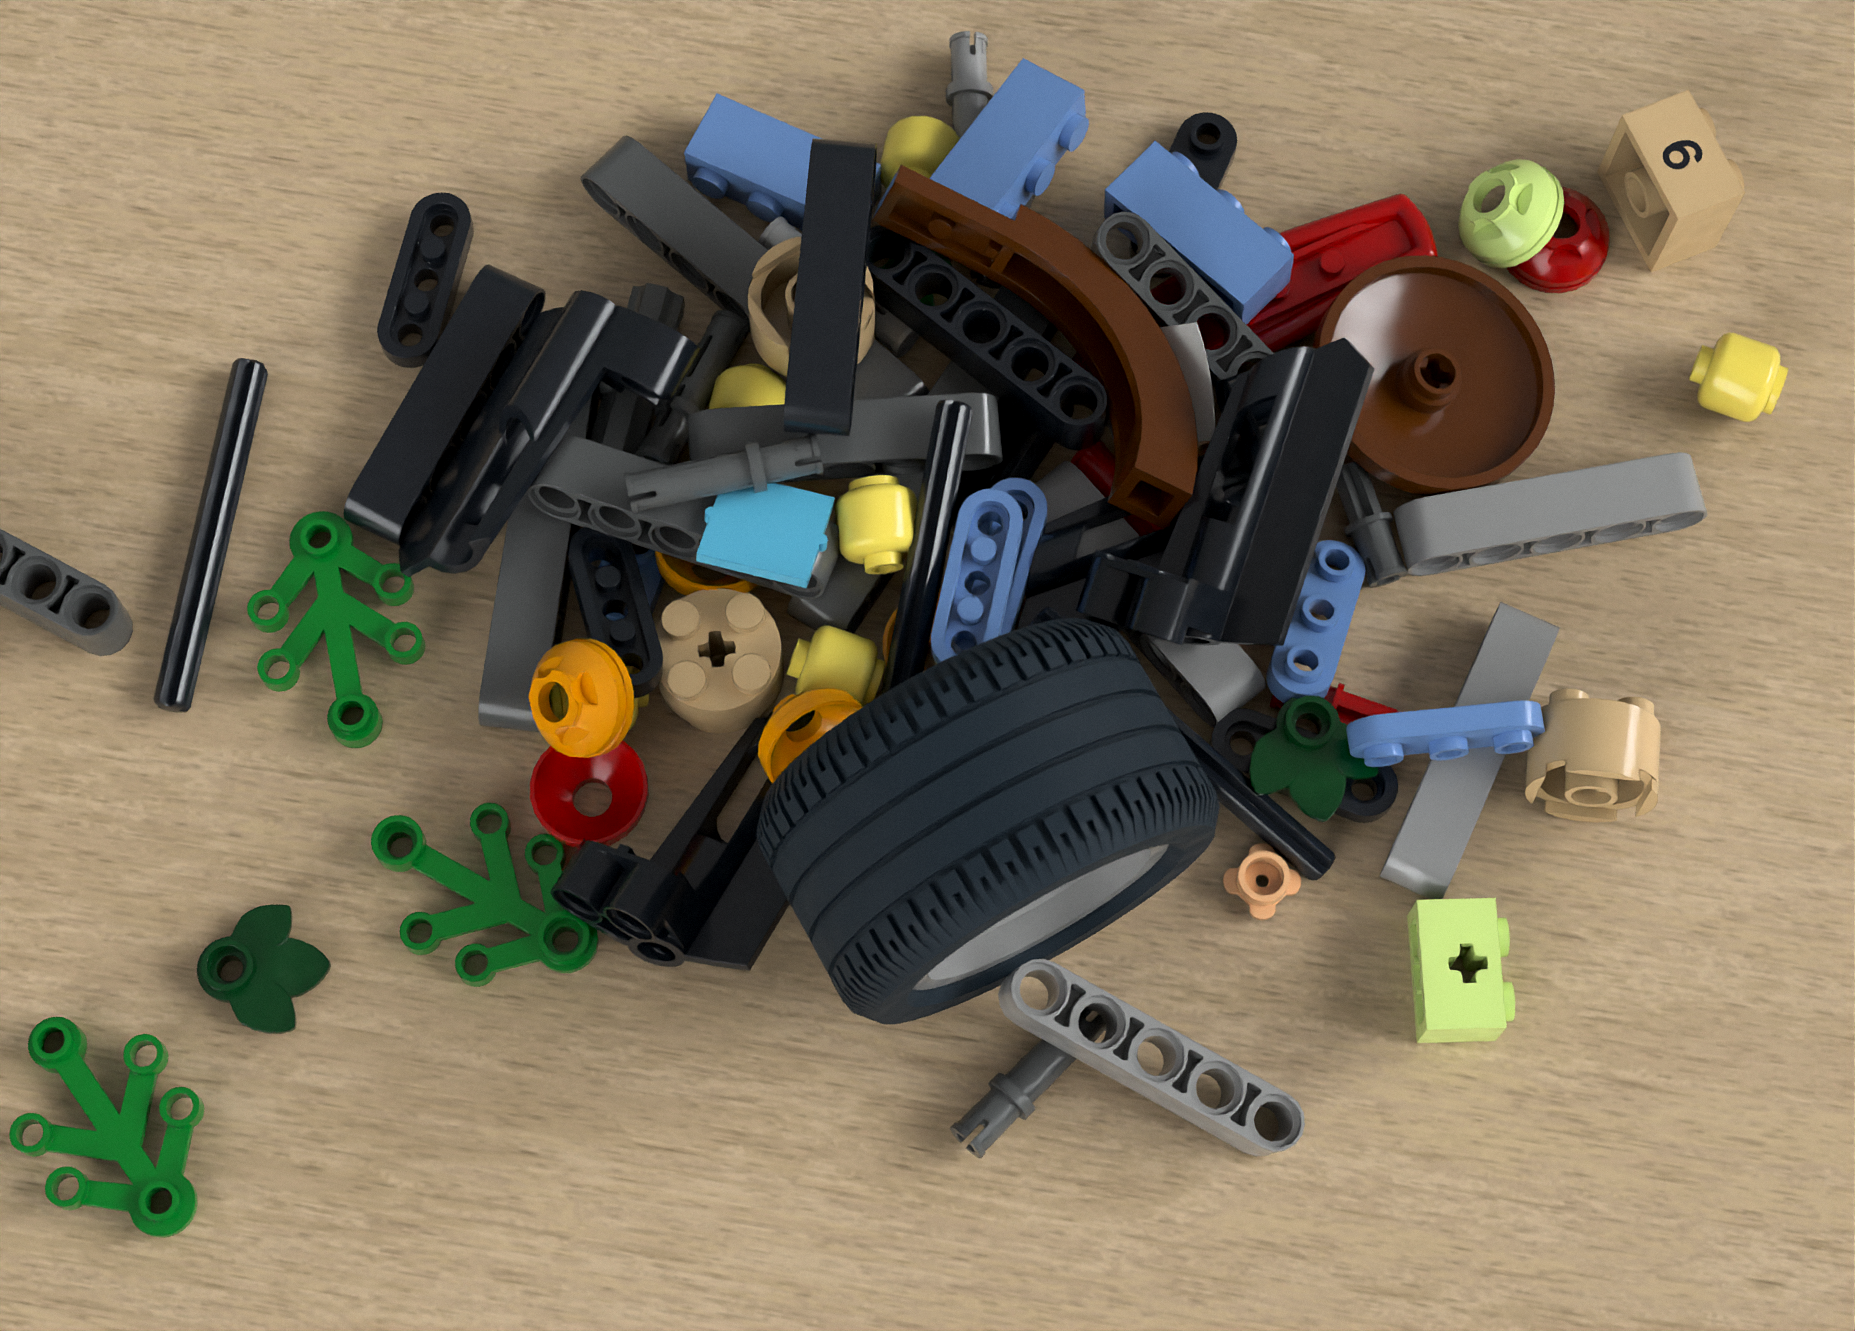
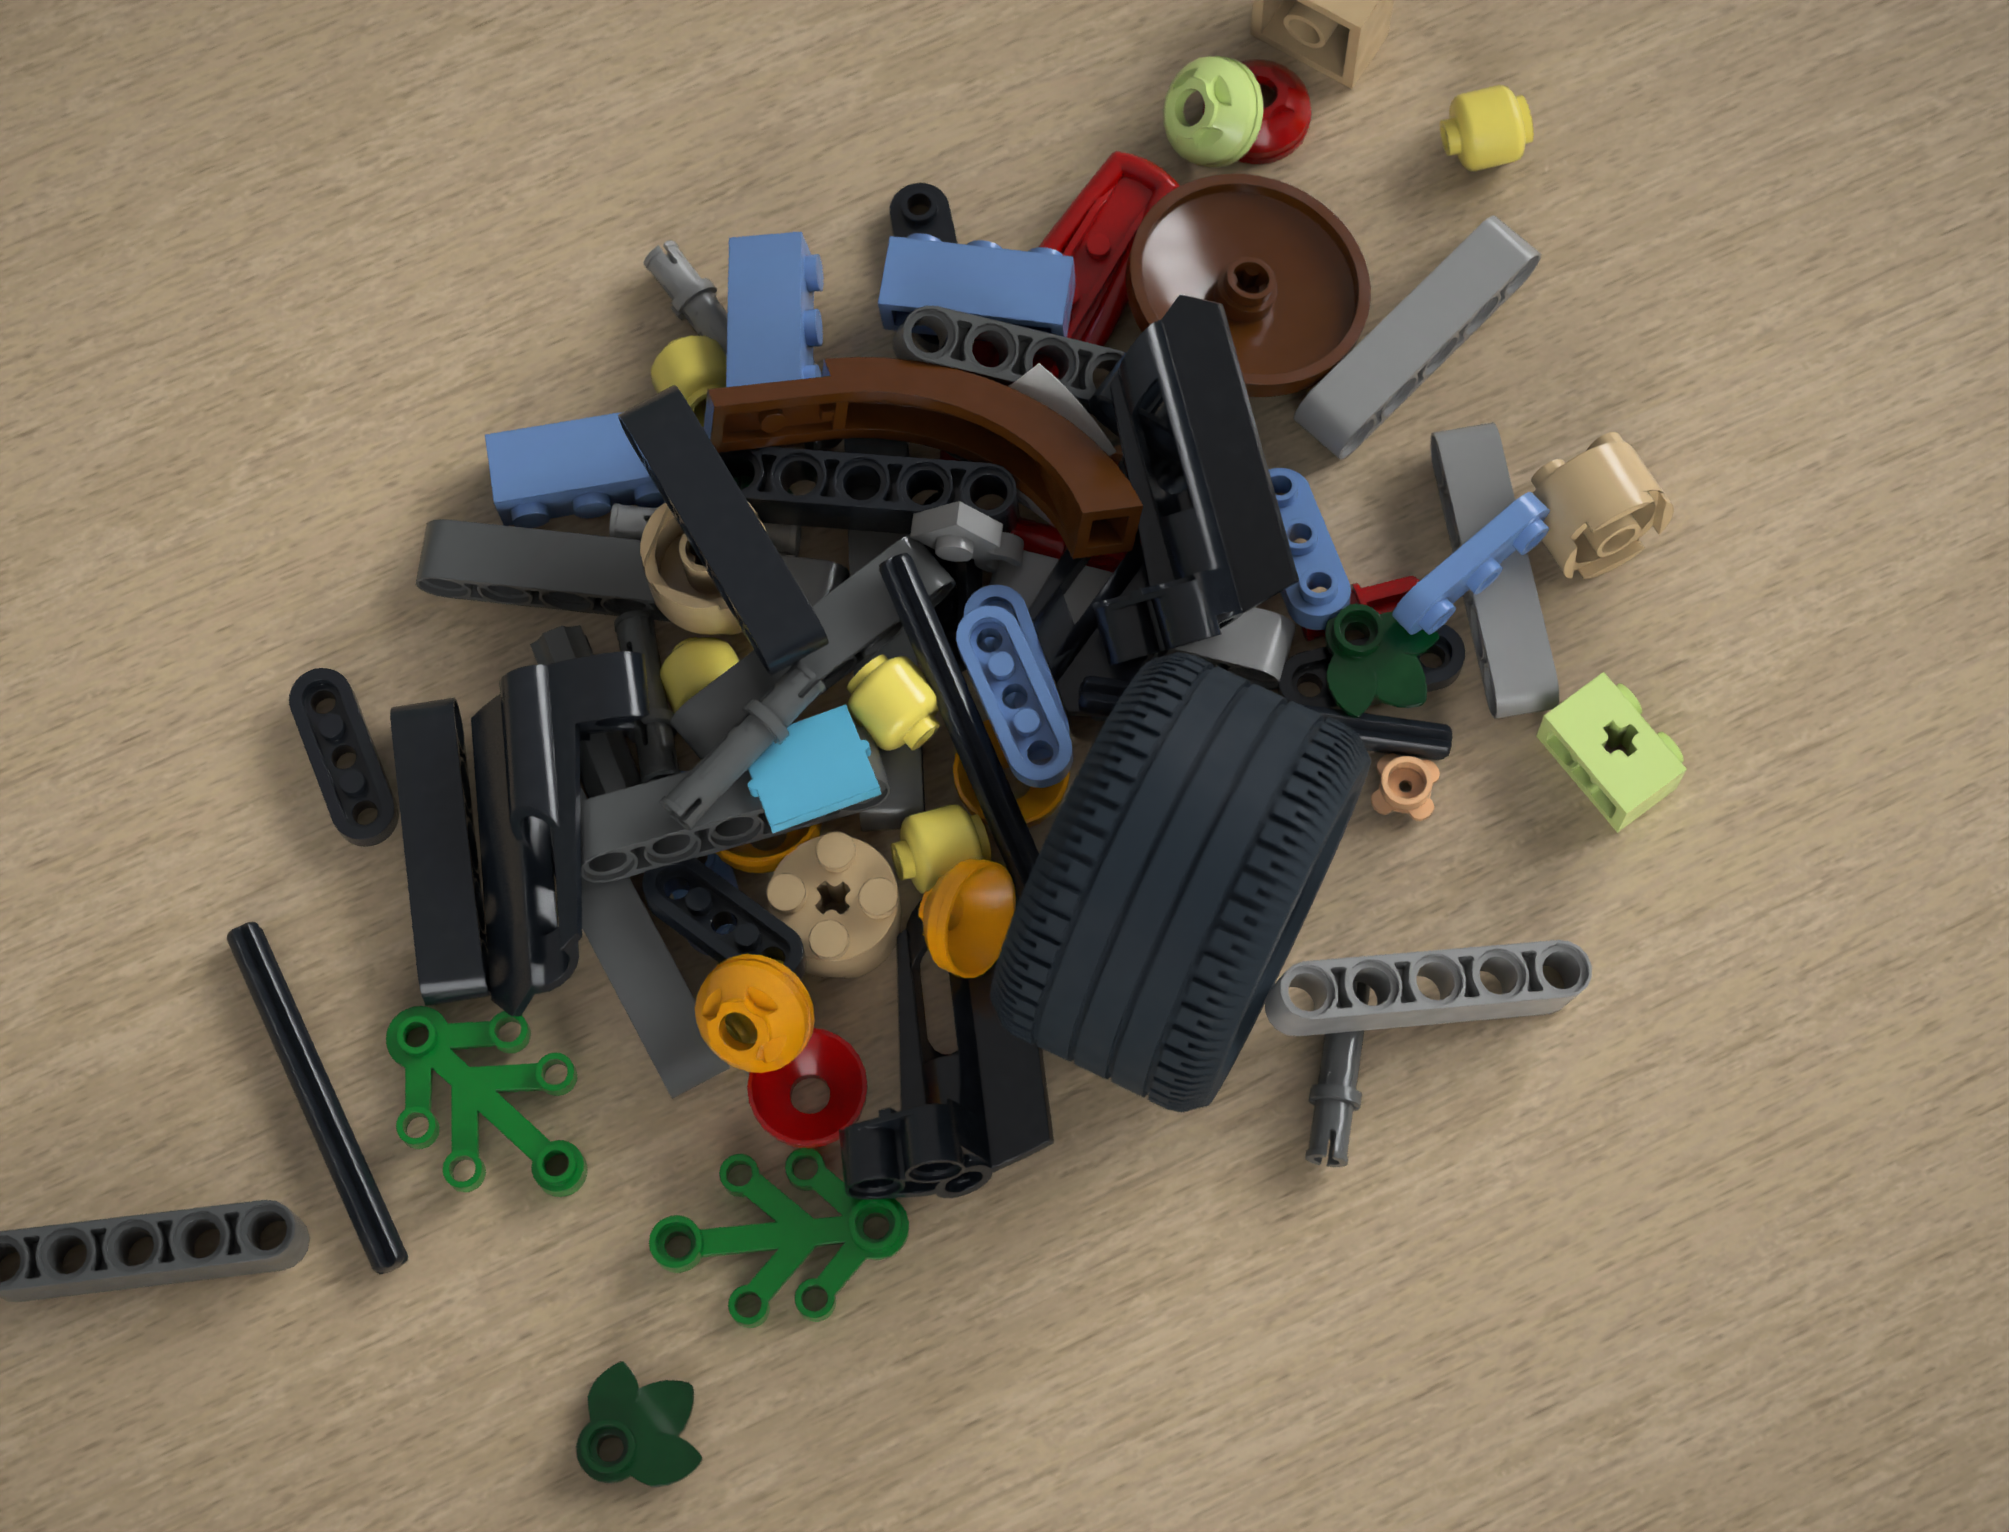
camera: 30 degrees left, 0 degrees up
(1033, 422) = (966, 534): none -> light grey plate
(1369, 527) = (1292, 447): dark grey axle -> none

